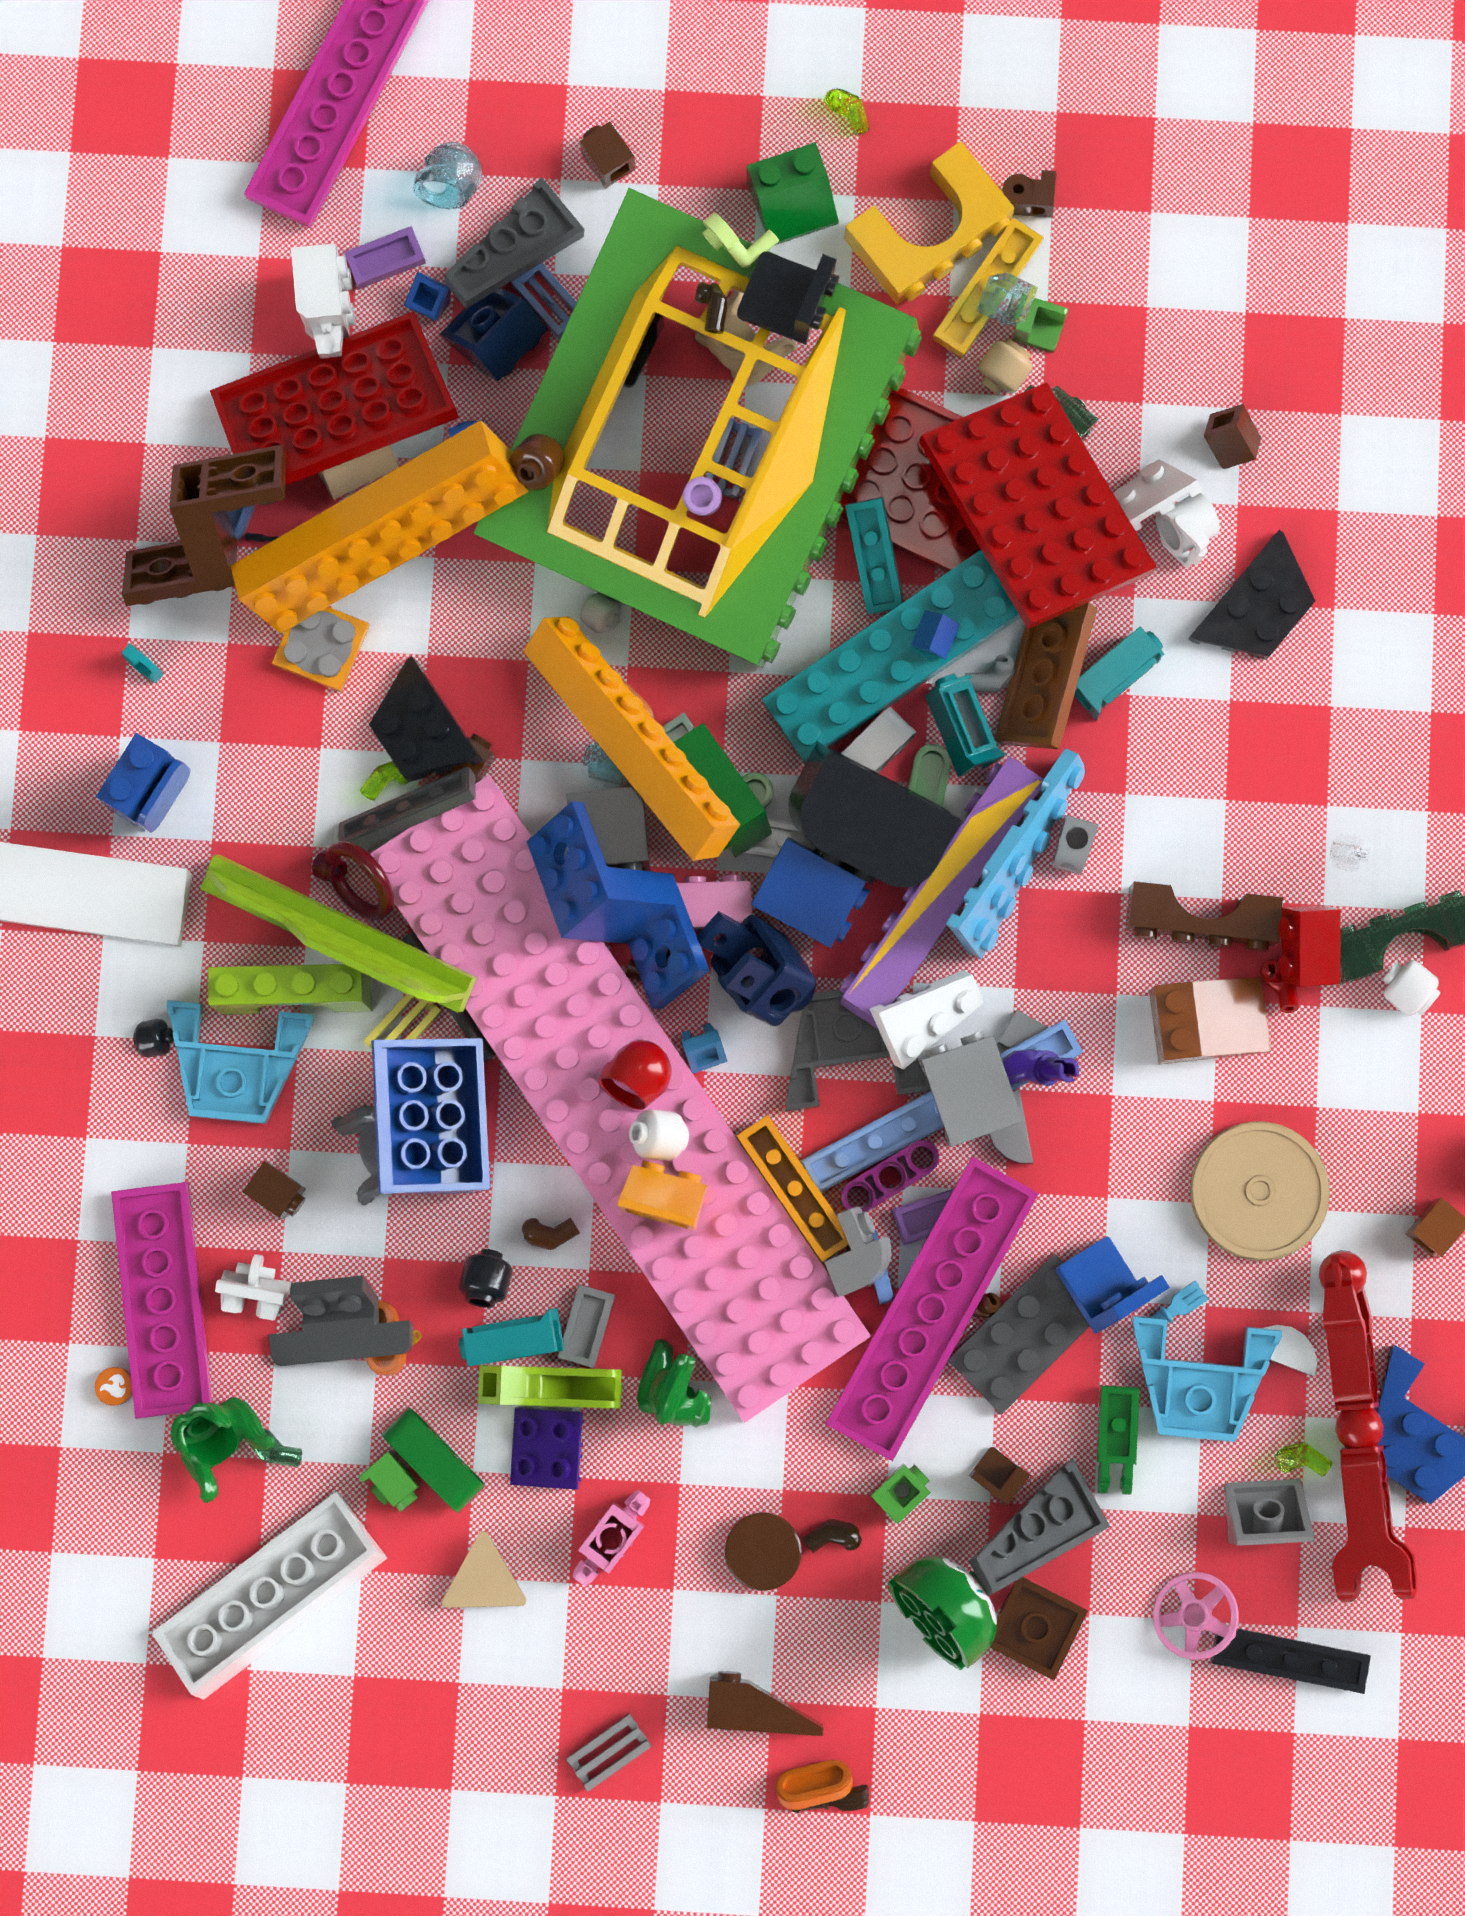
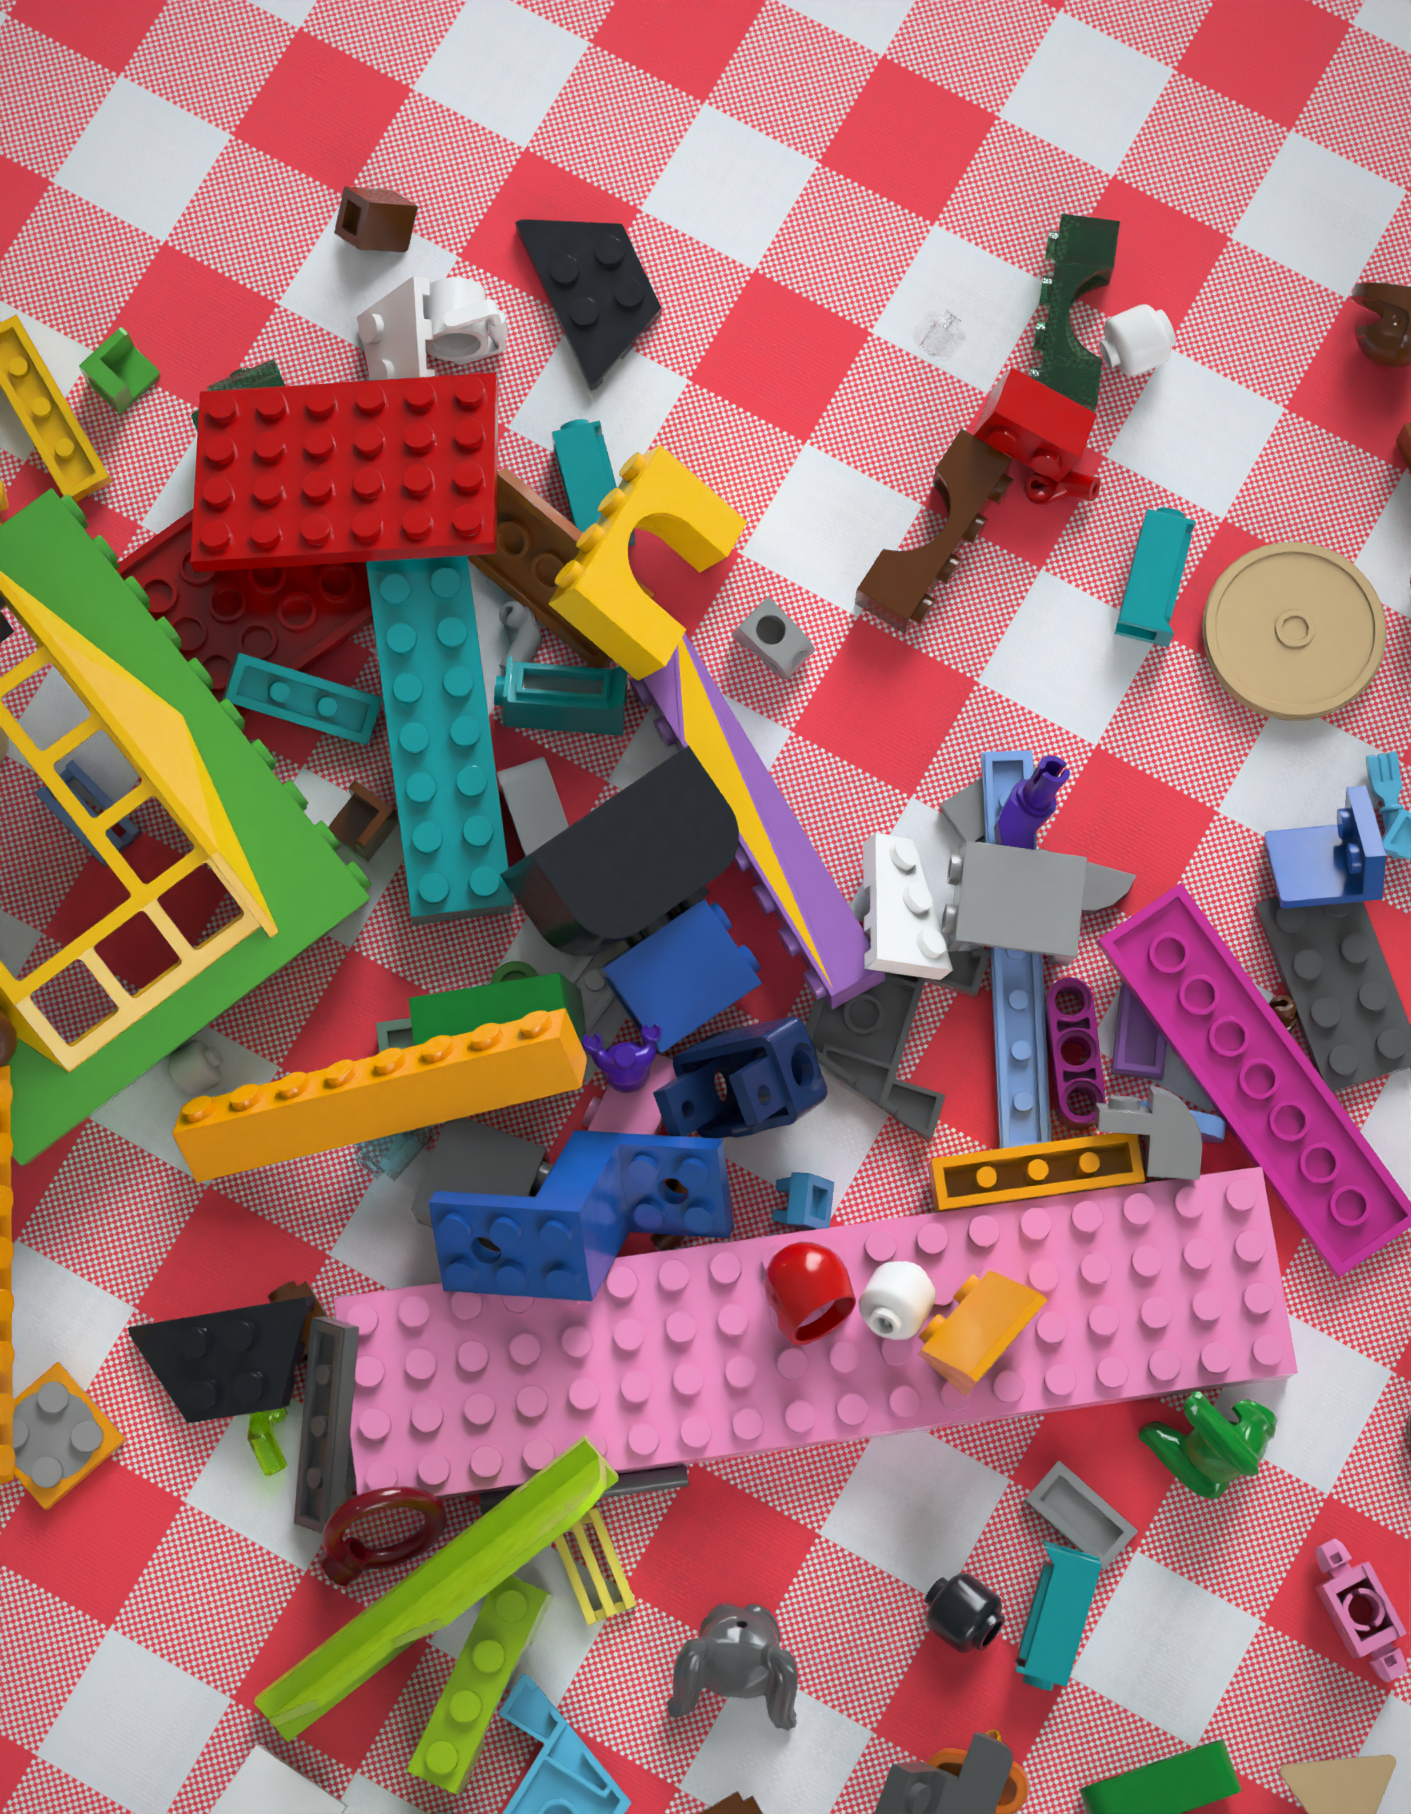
camera: 65 degrees left, 5 degrees down
(144, 784) = (120, 1745): blue brick -> none
(430, 1116) = (732, 1578): blue slope -> none
(546, 1448) = (1212, 1638): dark purple hinge -> none
(548, 1237) = (947, 1509): reddish brown arm -> none
(549, 1386) = (1140, 1594): lime arch -> none
(702, 496) = (133, 851): lavender tile -> none
(731, 884) = (625, 1064): none -> dark purple piece
(813, 637) = (364, 822): none -> reddish brown panel
(930, 772) = (600, 765): green tile -> none
(935, 634) = (442, 667): blue slope -> none
(1005, 367) = (150, 435): tan head -> none
(1007, 298) = (71, 389): clear light blue panel -> none
(1013, 859) = (765, 720): medium azure wing -> none
(1039, 707) = (599, 587): none -> yellow arch
(1209, 1019) = (1062, 589): slope -> none
(1249, 1078) = (1155, 576): none -> teal window

